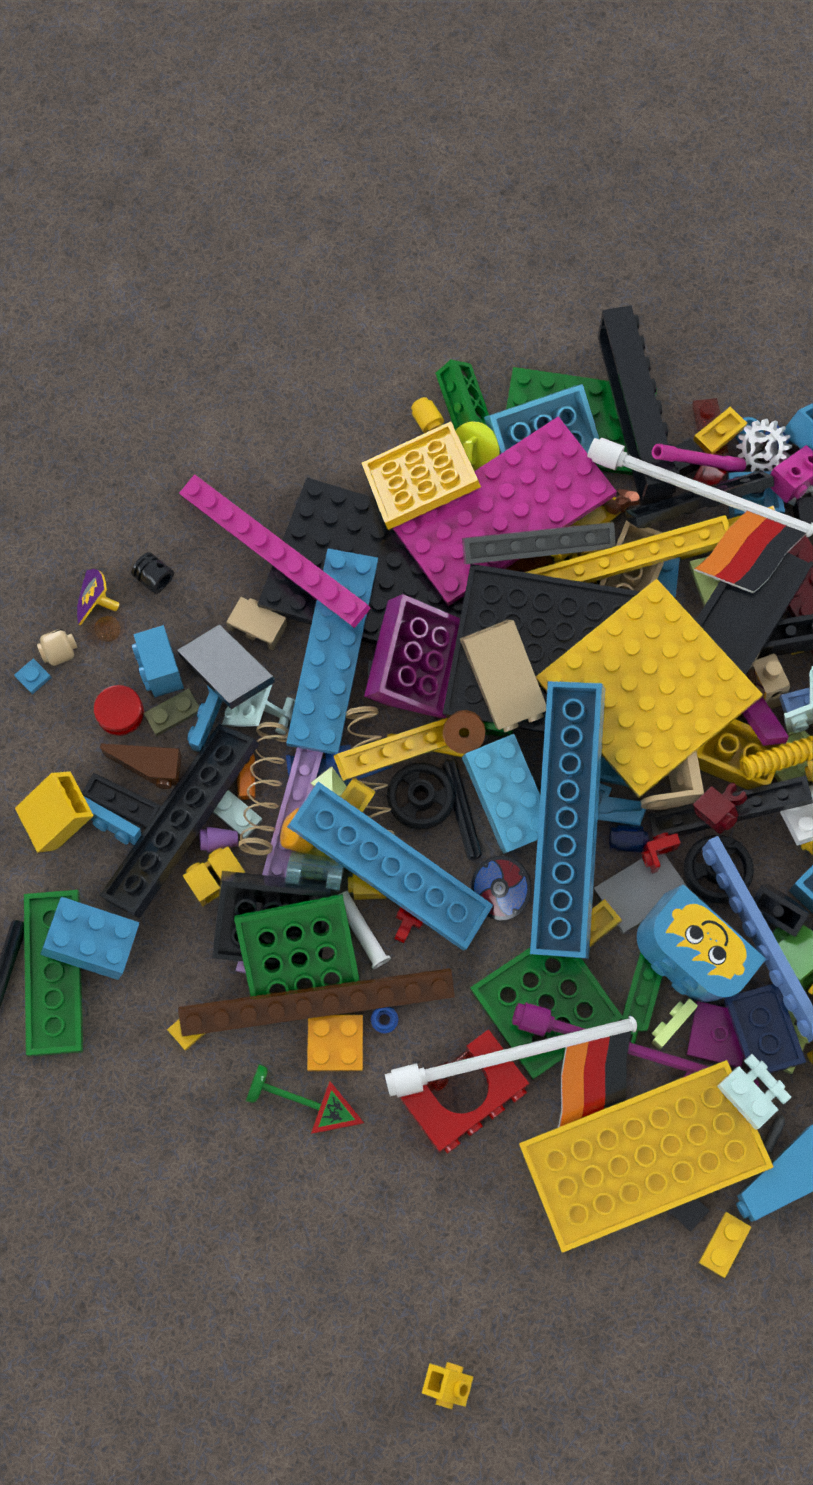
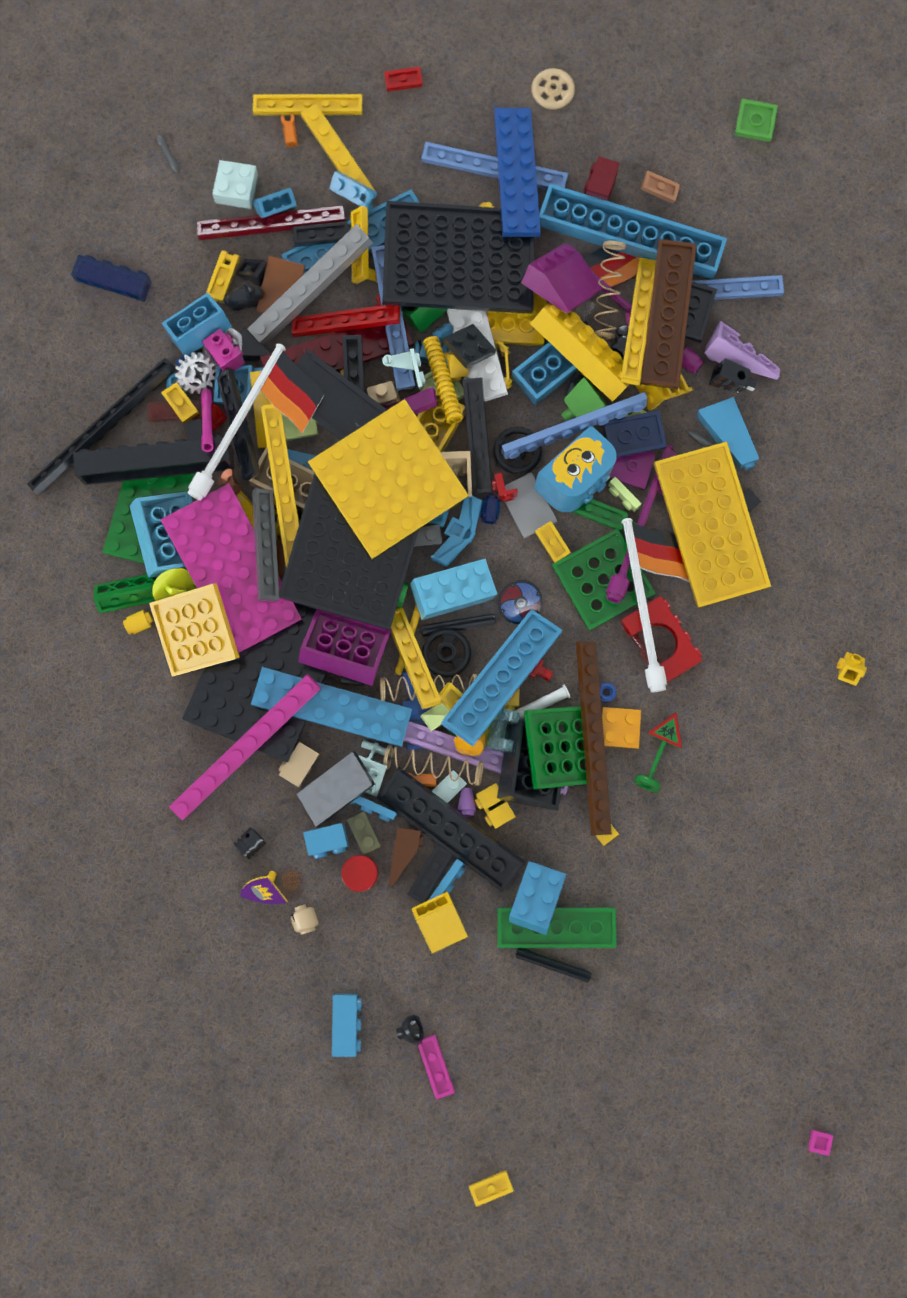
camera: 85 degrees left, 10 degrees up
(32, 676) = (324, 939): dark azure plate -> none
(468, 720) = (397, 615): dark orange piece -> none
(504, 675) = (368, 580): tan slope -> none
(568, 819) = (482, 546): dark azure brick -> none
(684, 353) = (101, 425): none -> black plate
(719, 809) = (481, 443): dark red brick -> none
(724, 1244) = (770, 481): yellow plate -> none
(748, 1097) = (681, 451): light aqua plate -> none
(780, 909) = (552, 411): black slope -> none

